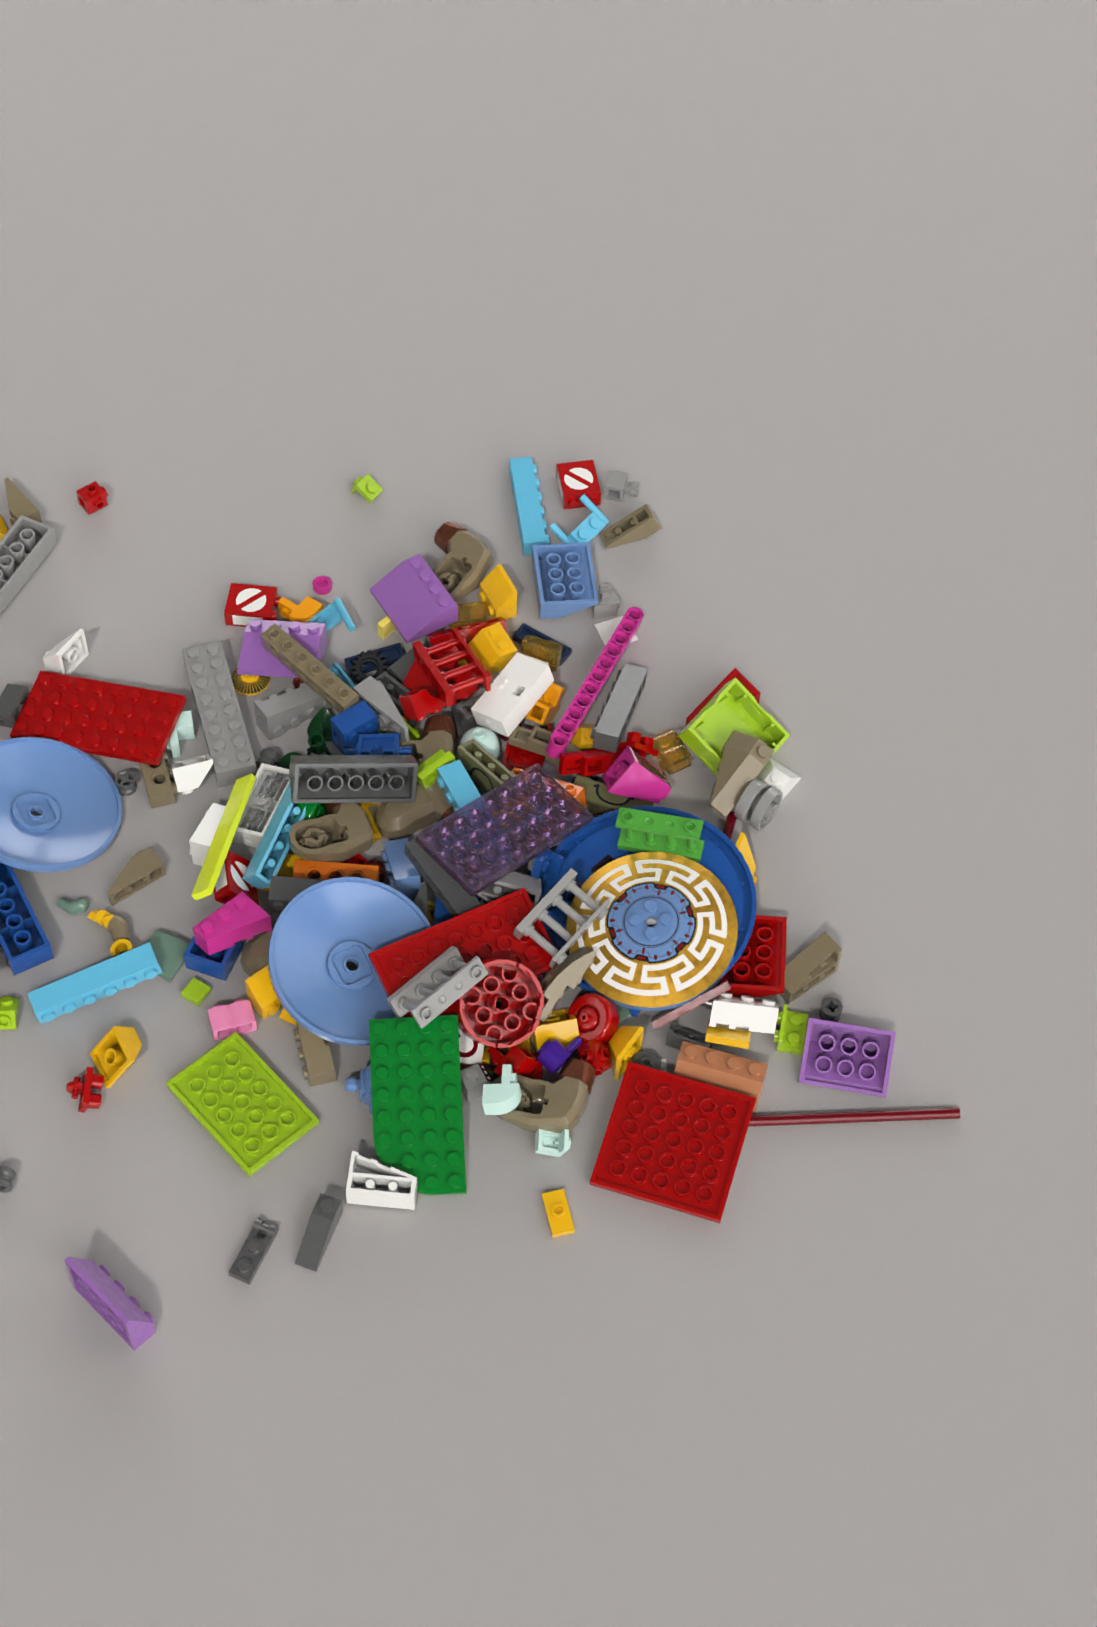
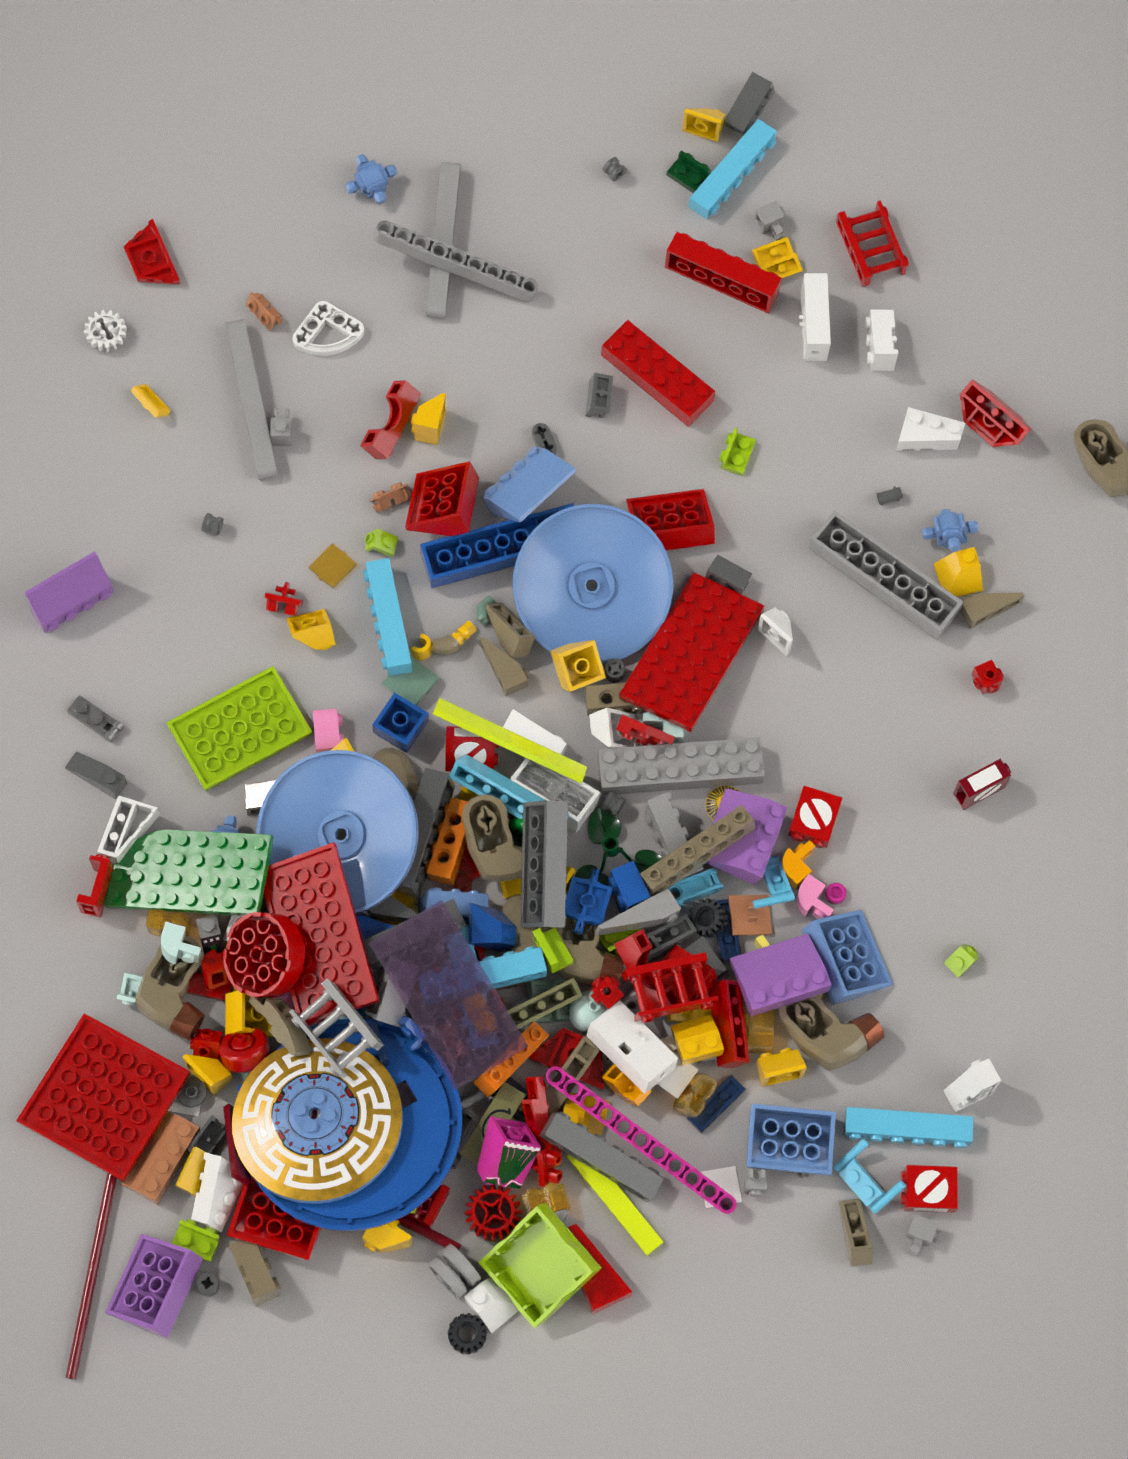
camera: 100 degrees right, 15 degrees up
(38, 1056) = (332, 565): none -> clear yellow piece
(96, 873) = (510, 630): none -> dark tan slope
(128, 806) = (578, 664): none -> yellow slope
(192, 740) = (644, 733): none -> red plate
(196, 992) = (366, 705): lime tile -> none
(200, 486) = (982, 783): none -> dark red brick
(230, 924) = (410, 734): dark pink wedge -> none
(326, 595) = (809, 900): none -> bright pink brick
(354, 642) = (746, 919): none -> nougat piece
(372, 565) = (848, 956): none -> medium blue slope
(417, 821) = (490, 928): none -> blue slope
(437, 986) = (292, 887): light grey fence -> none
(449, 1191) = (93, 904): none -> red panel
(464, 720) = (611, 996): none -> red brick
(474, 1122) = (157, 918): none -> clear yellow brick
(480, 456) = (973, 1085): none -> white wedge
(554, 1054) = (211, 1005): dark purple piece -> none
(558, 1213) = (64, 981): yellow plate -> none
(659, 697) = (620, 1207): none -> neon yellow tile
(659, 833) = (406, 1142): bright green fence -> none
(682, 793) = (503, 1197): none -> red gear
(740, 764) = (493, 1257): dark tan wedge -> none
(812, 784) = (467, 1320): none -> black tyre

